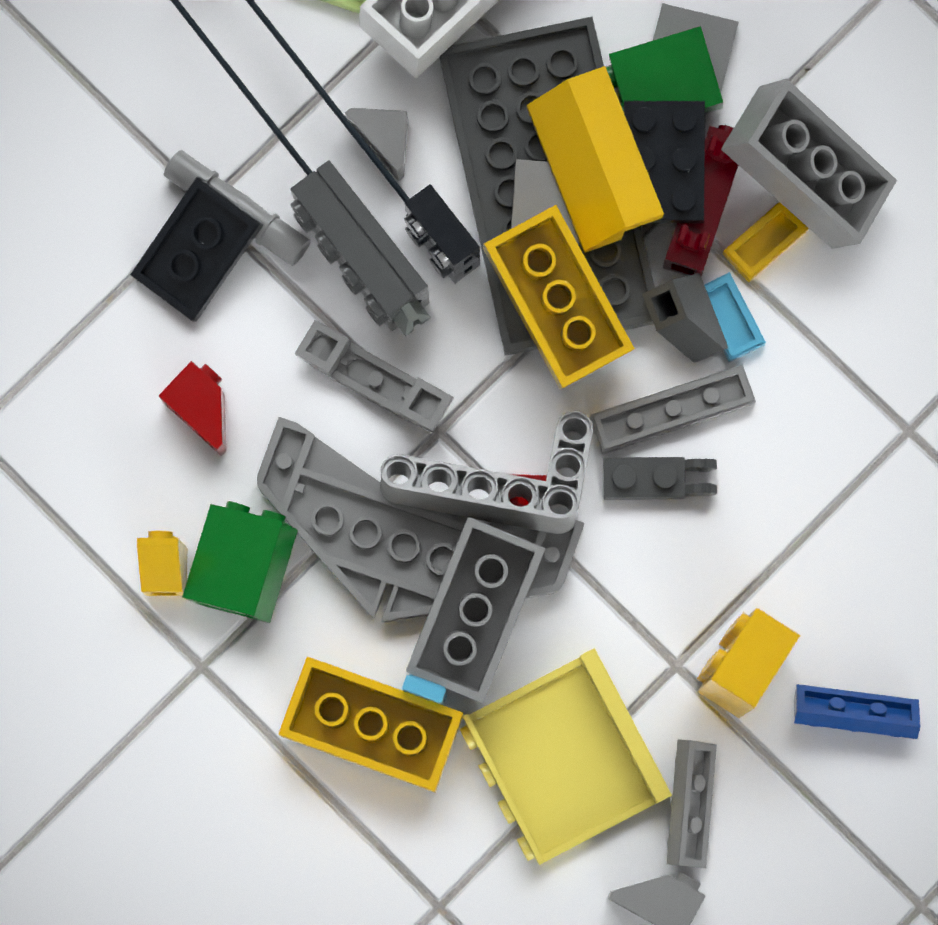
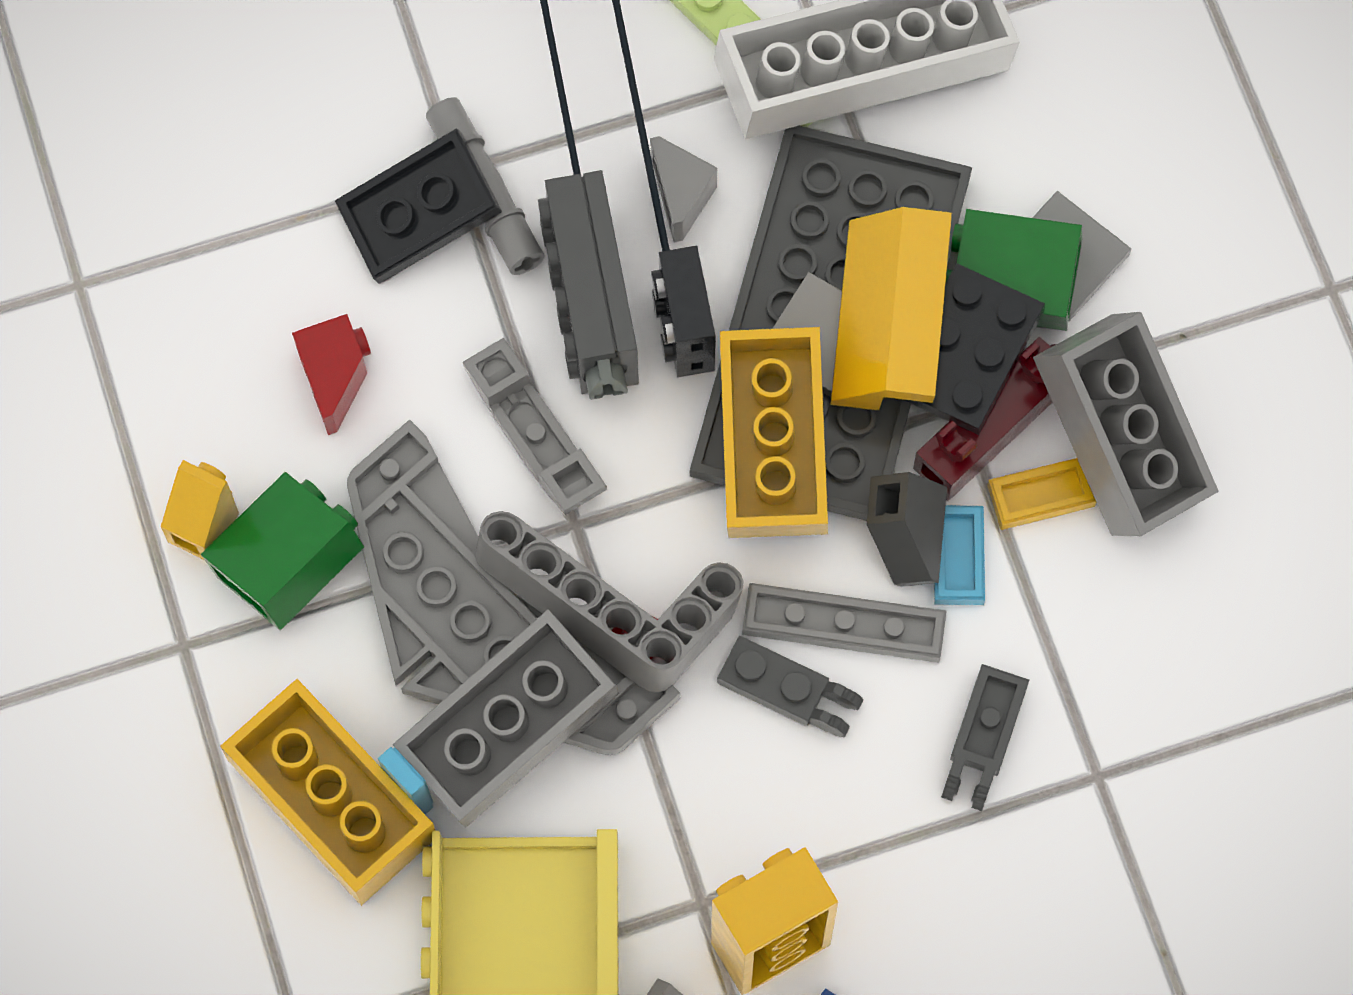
camera: 25 degrees right, 10 degrees down
(815, 440) = (986, 730): none -> dark grey hinge

